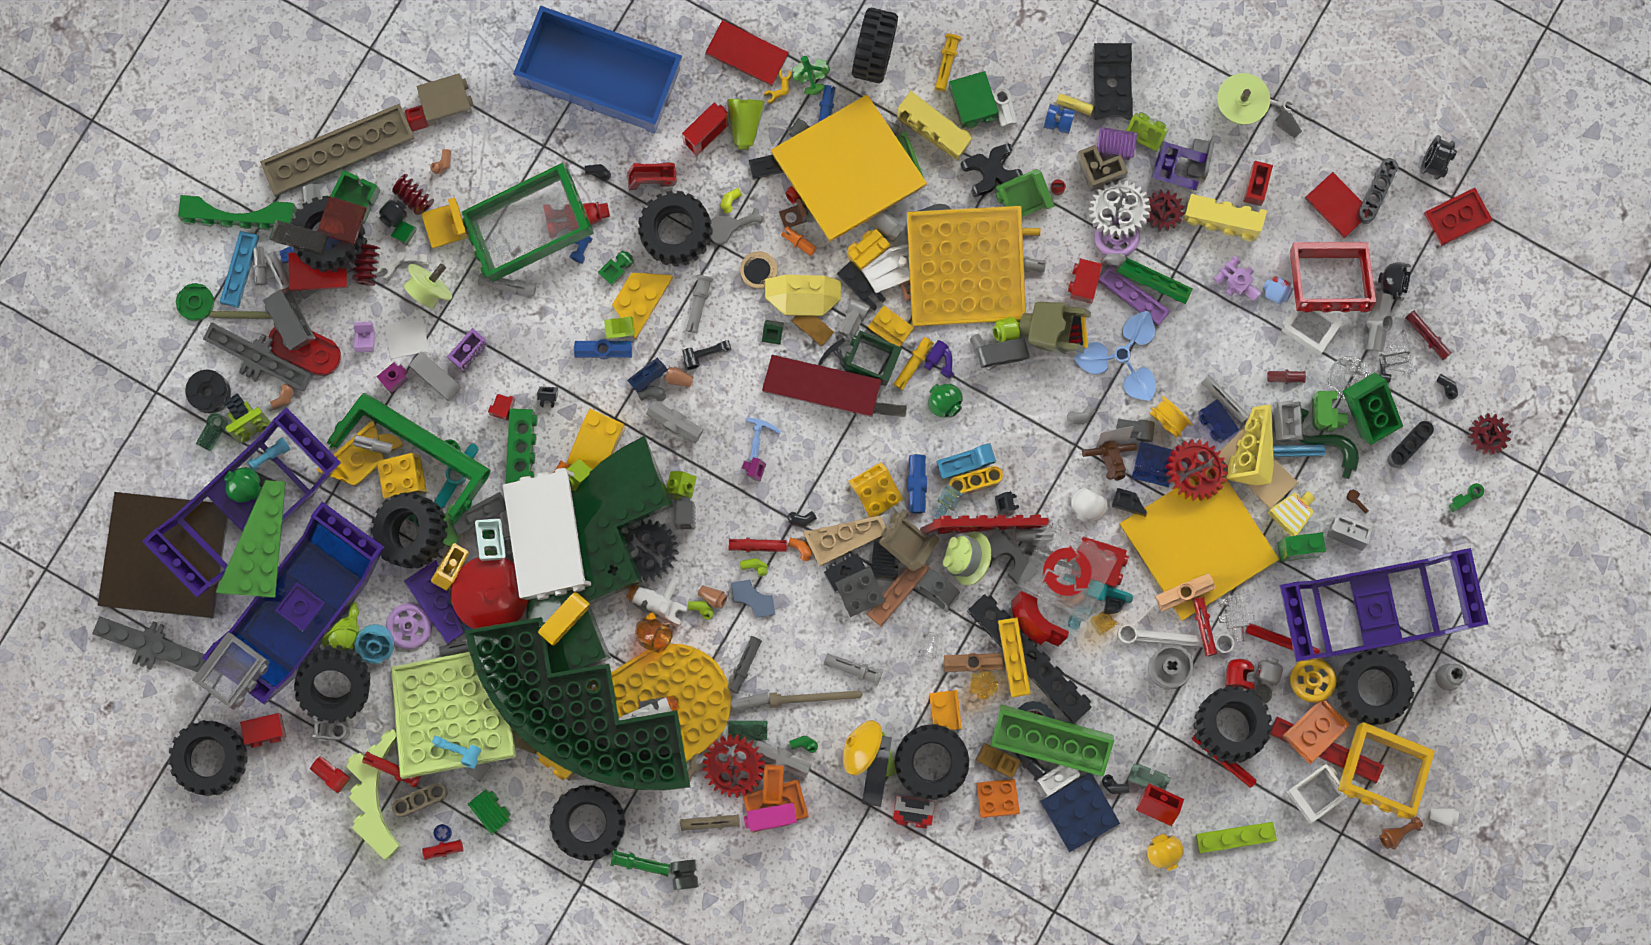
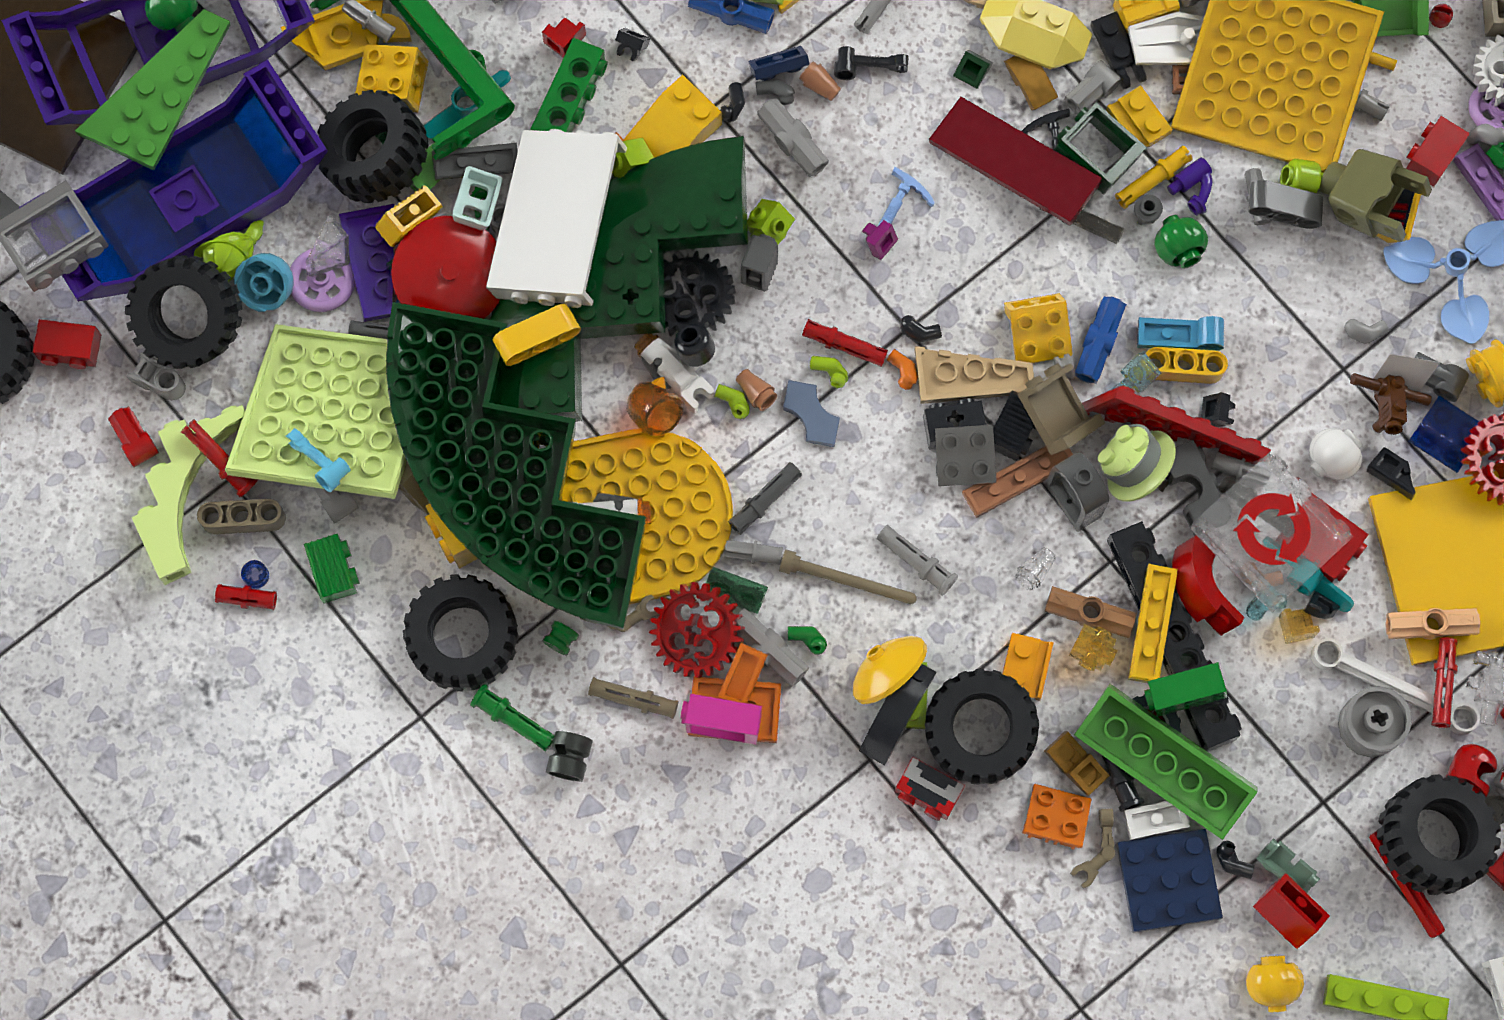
camera: 20 degrees right, 5 degrees down
(408, 606) = (329, 250): none -> clear slope
(630, 412) = (736, 105): none -> black arm
(650, 802) = (560, 638): none -> green wheel
(664, 585) = (694, 345): none -> black head
(917, 382) = (1147, 209): none -> dark grey hose
(1036, 809) = (1091, 867): none -> dark tan piece
(1048, 694) = (1186, 689): none -> green brick

